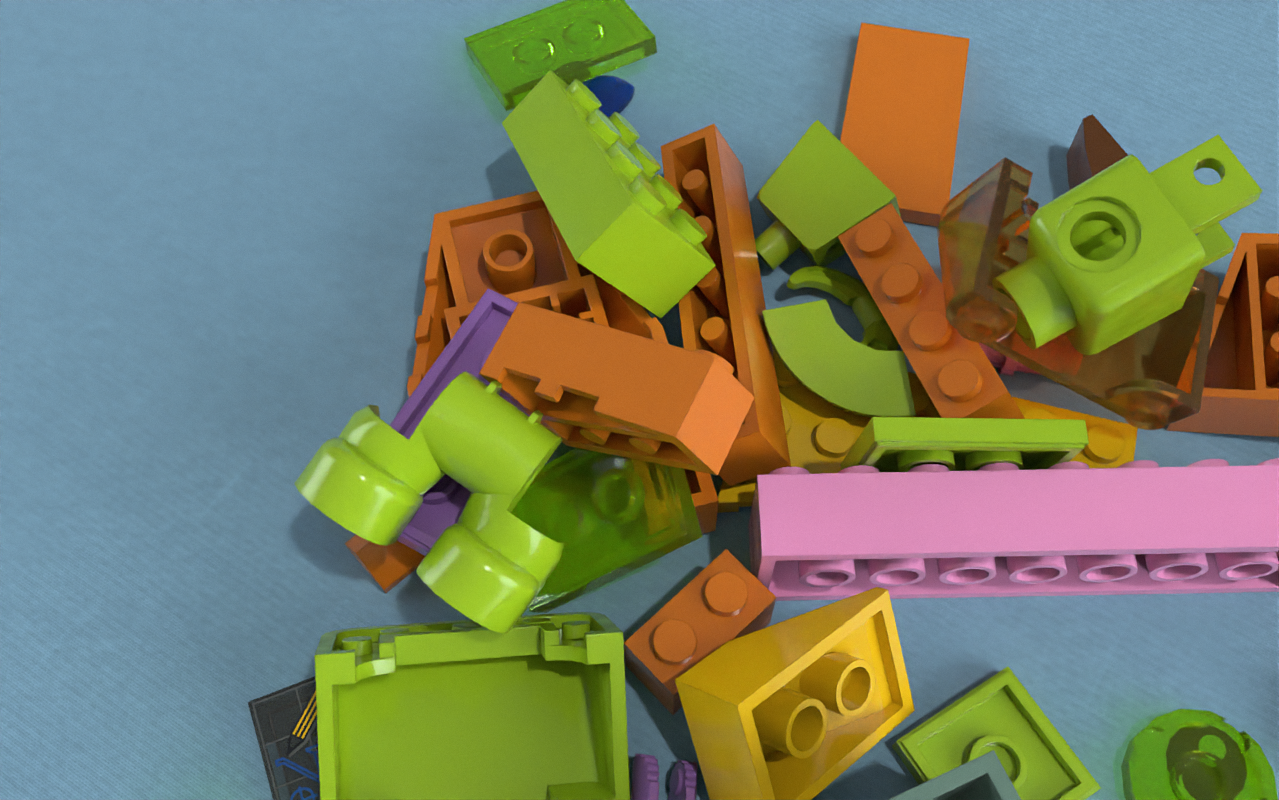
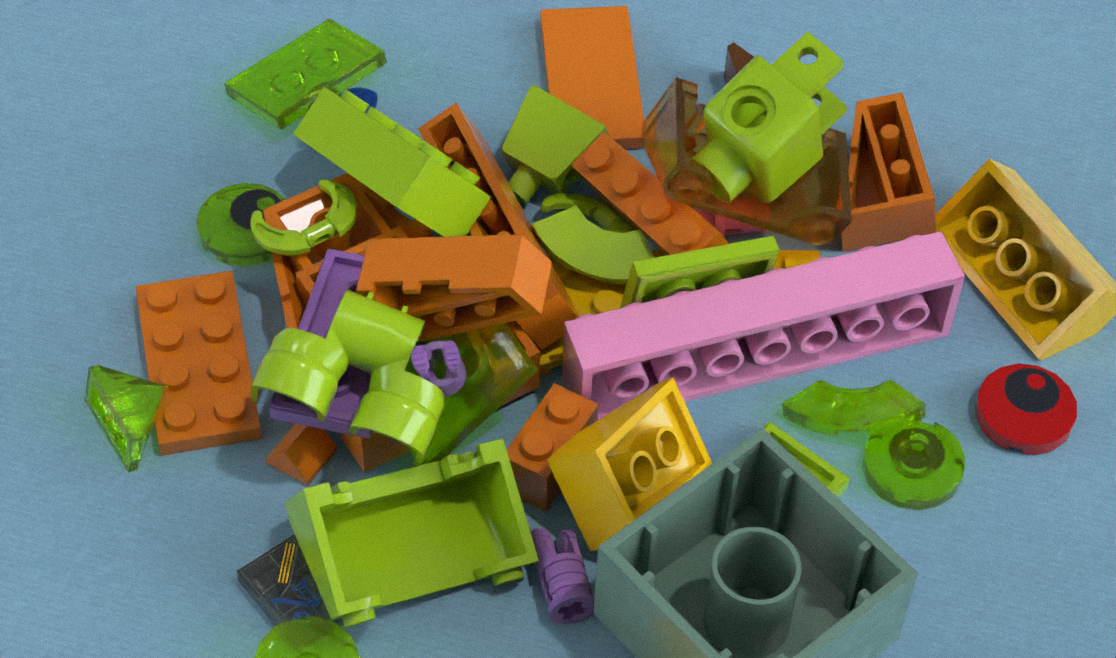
camera: 20 degrees left, 10 degrees down
(200, 438) = (124, 410): none -> clear neon green slope
(305, 380) = (201, 356): none -> orange plate
(405, 213) = (226, 223): none -> clear neon green tile
(449, 268) = (291, 242): none -> lime piece
(583, 507) = (425, 359): none -> medium lavender hinge
(1142, 688) = (874, 409): none -> clear neon green tile

